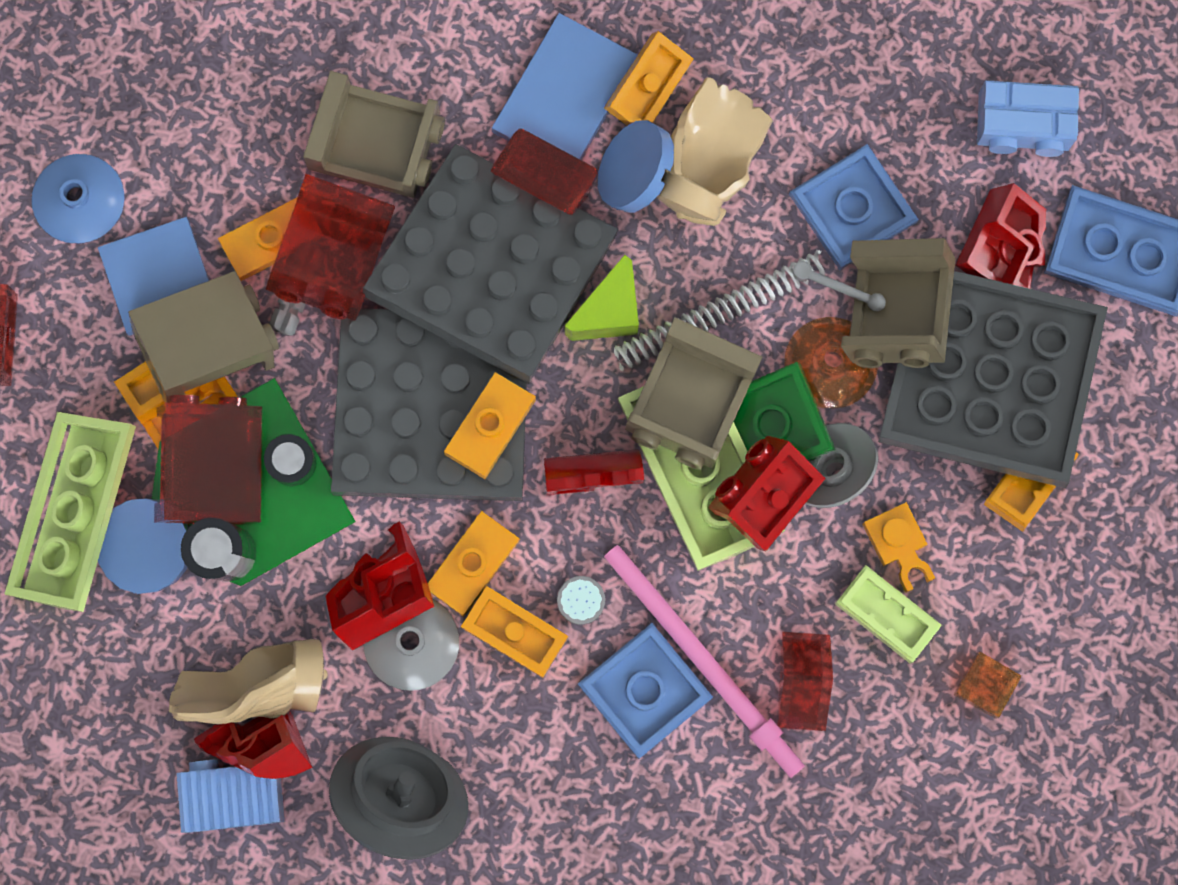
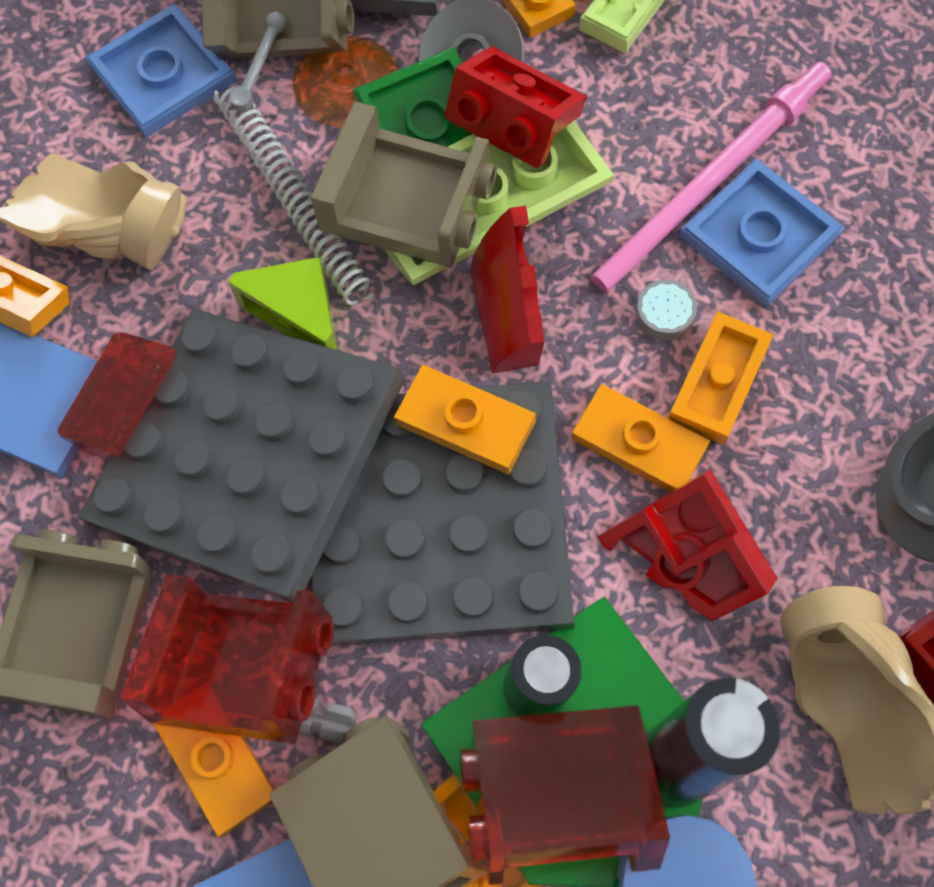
camera: 90 degrees left, 10 degrees down
(424, 664) = (789, 510): light grey dish -> none
(634, 166) = (110, 281): medium blue tile -> none
(805, 681) = (717, 68): clear red slope -> none

